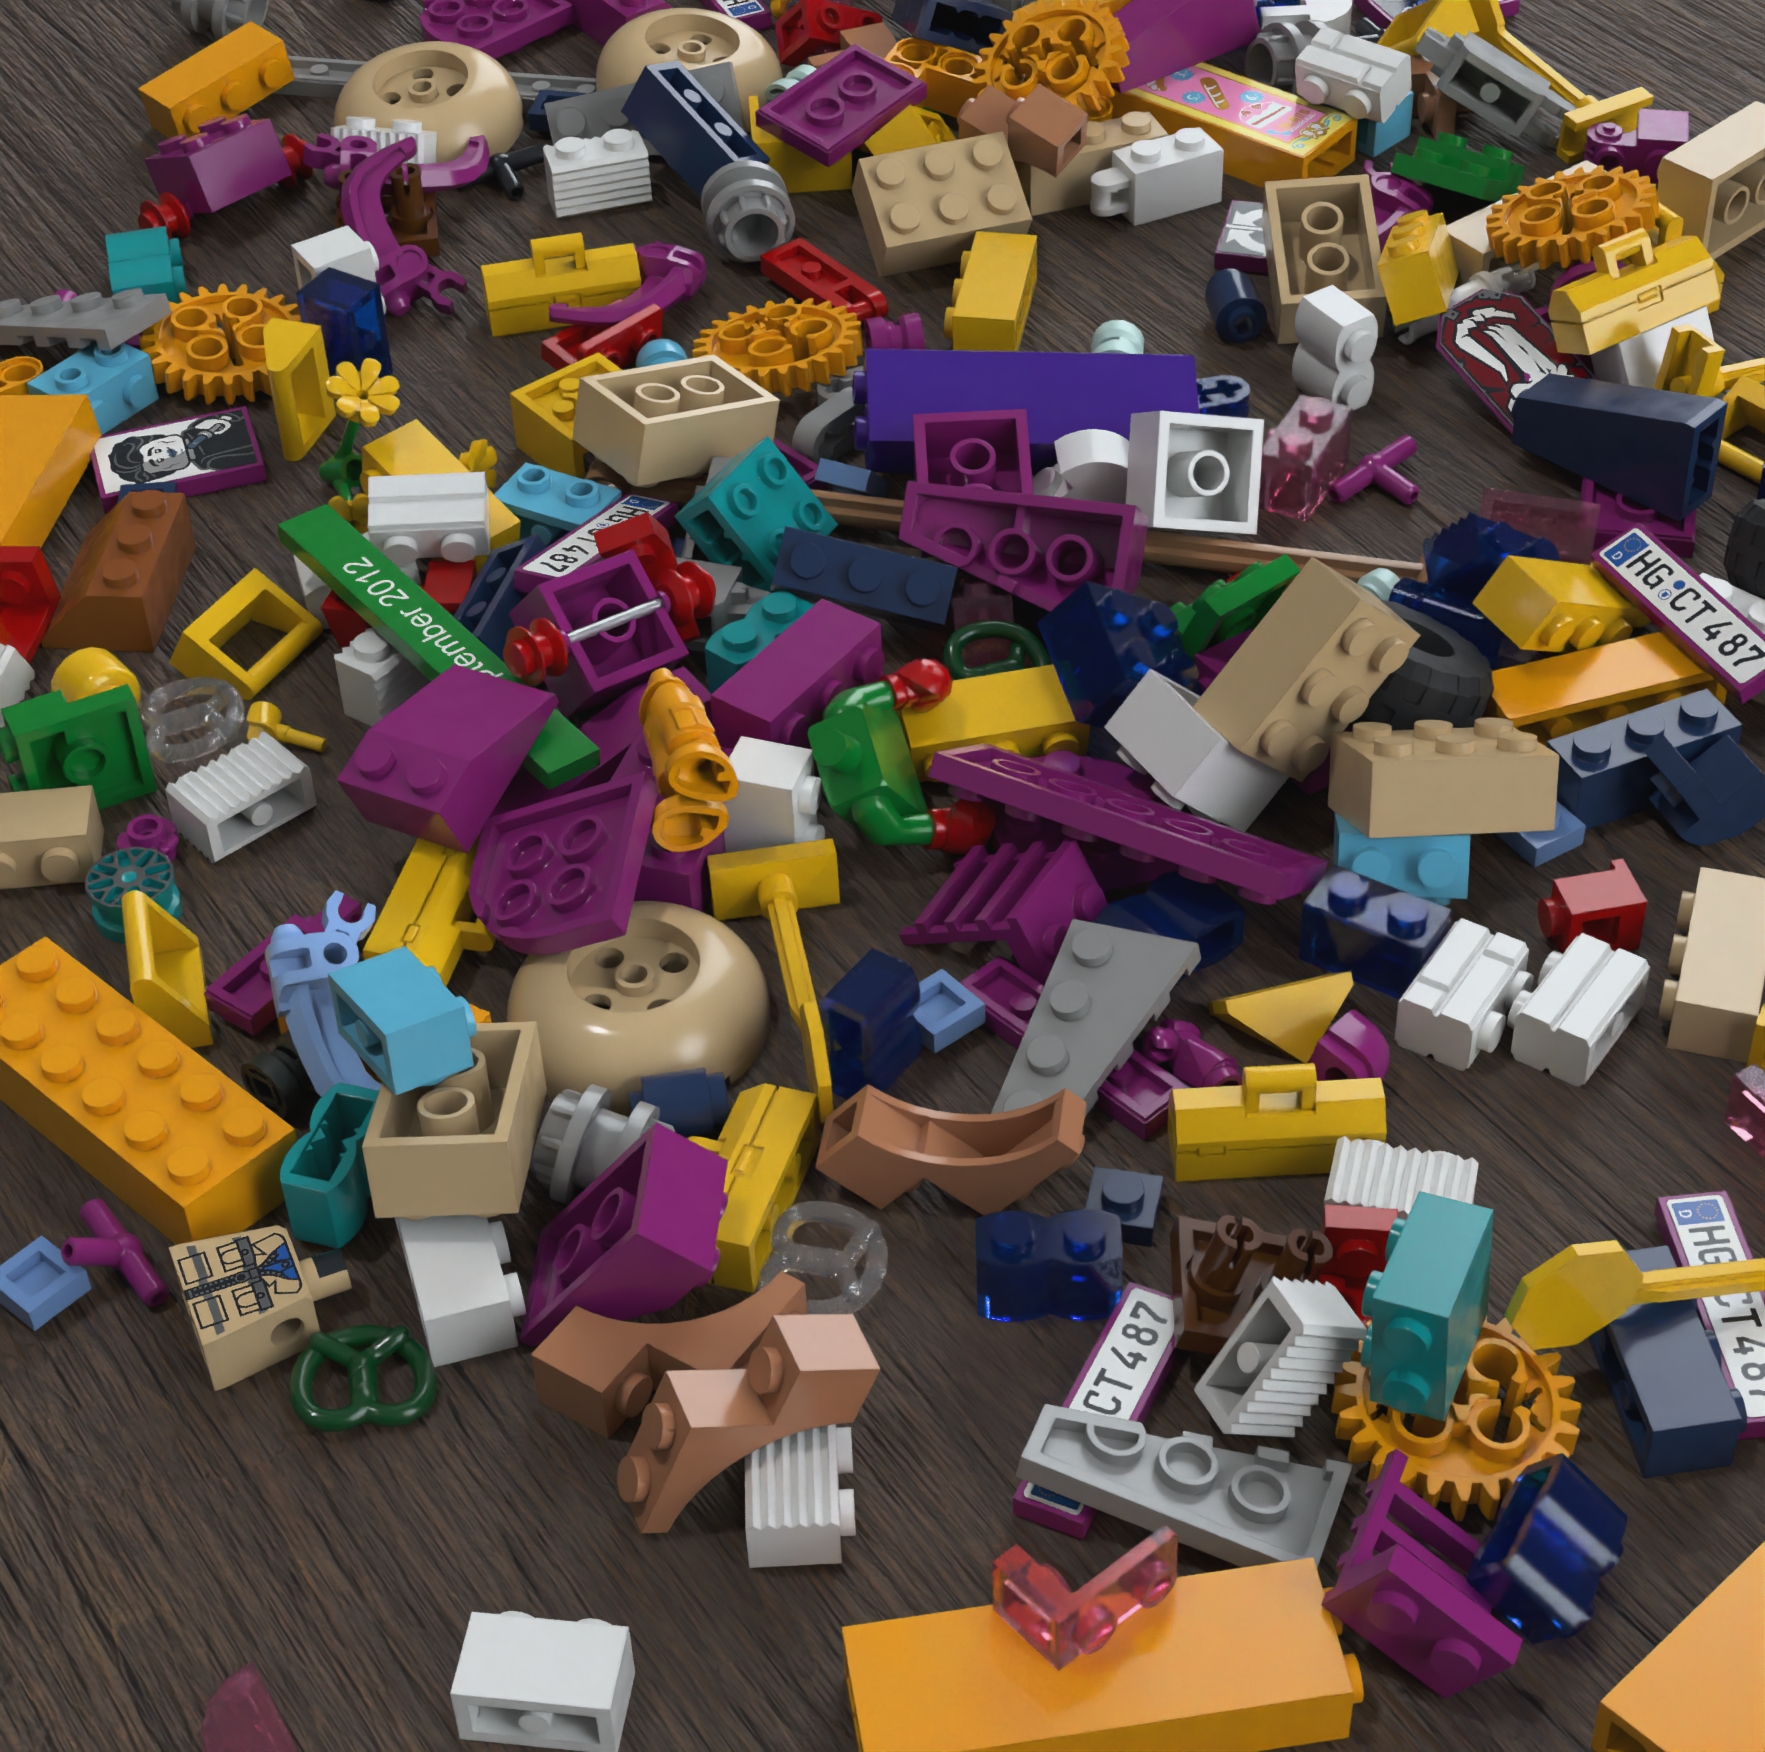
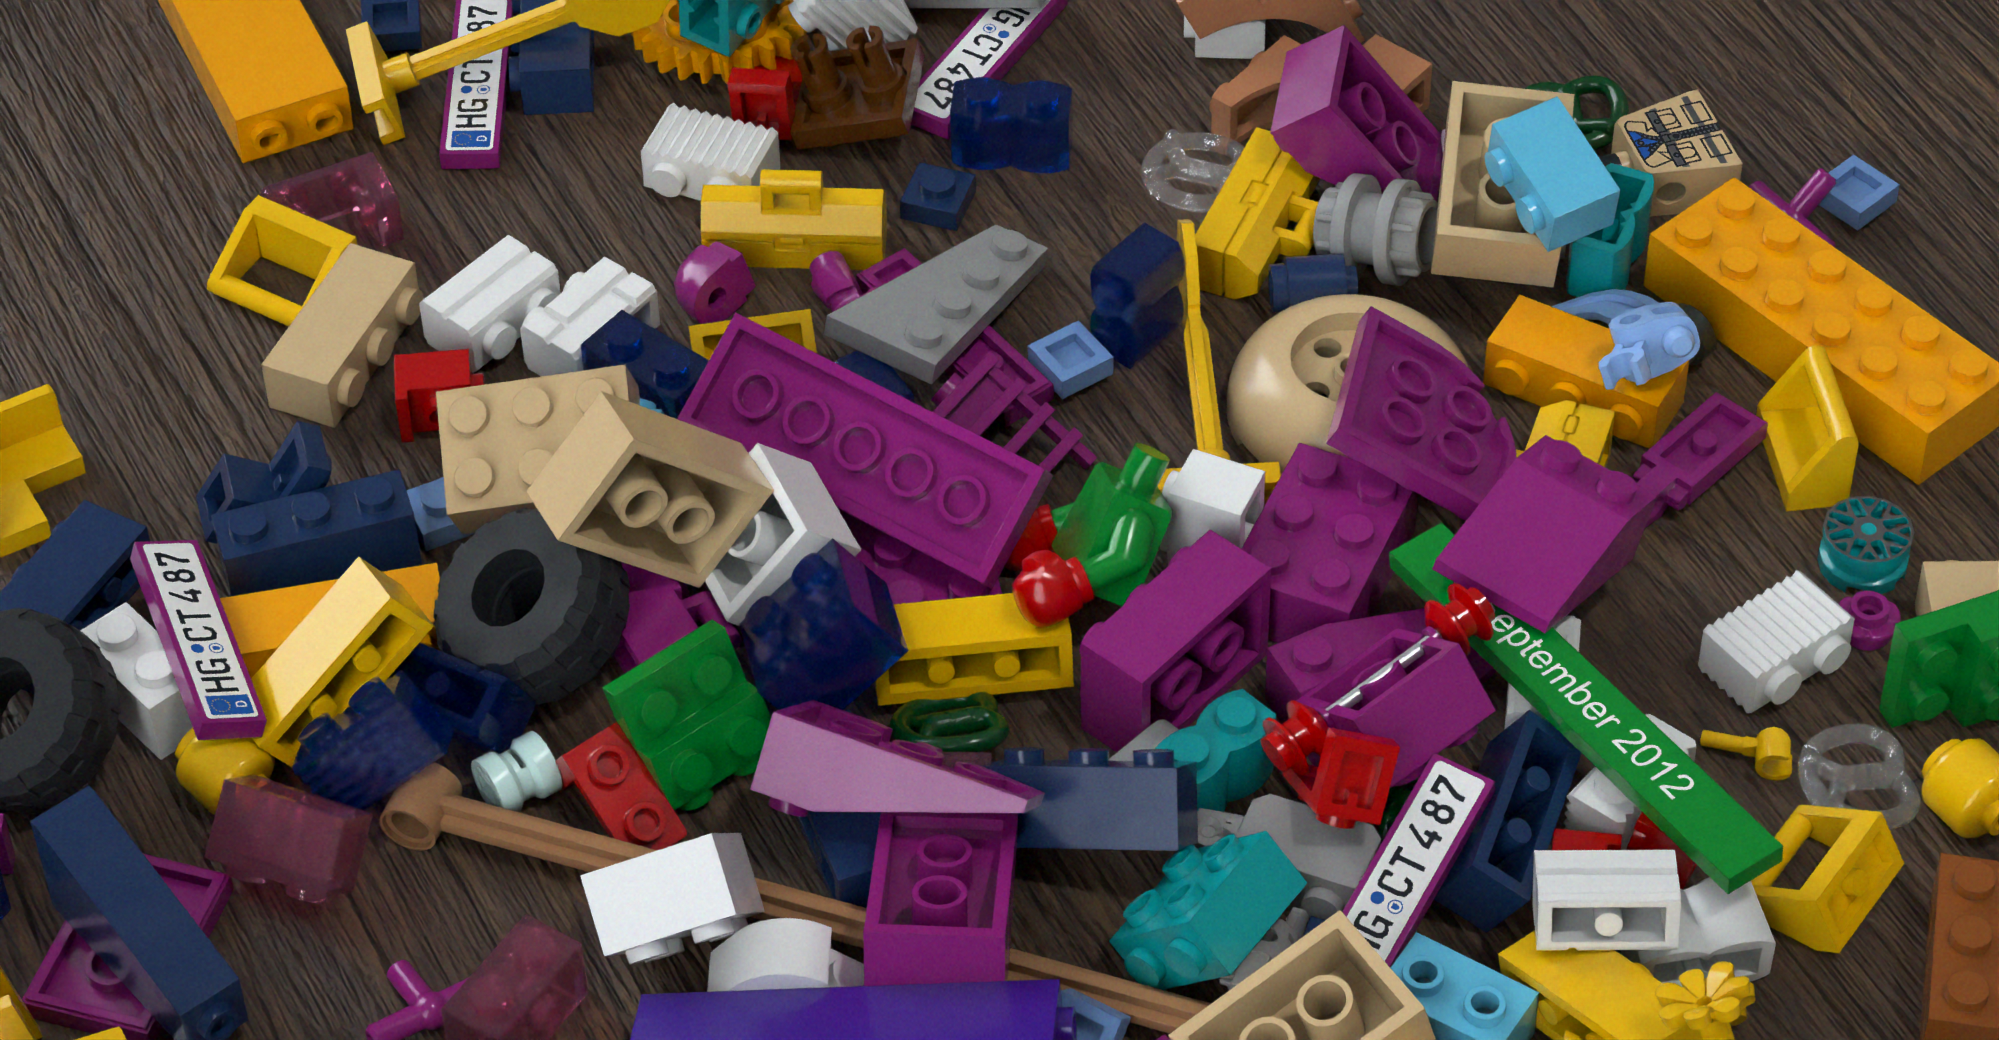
camera: 175 degrees left, 5 degrees up
(686, 765) = (1292, 442): light orange piece -> none
(983, 1160) = (1059, 202): nougat arch -> none

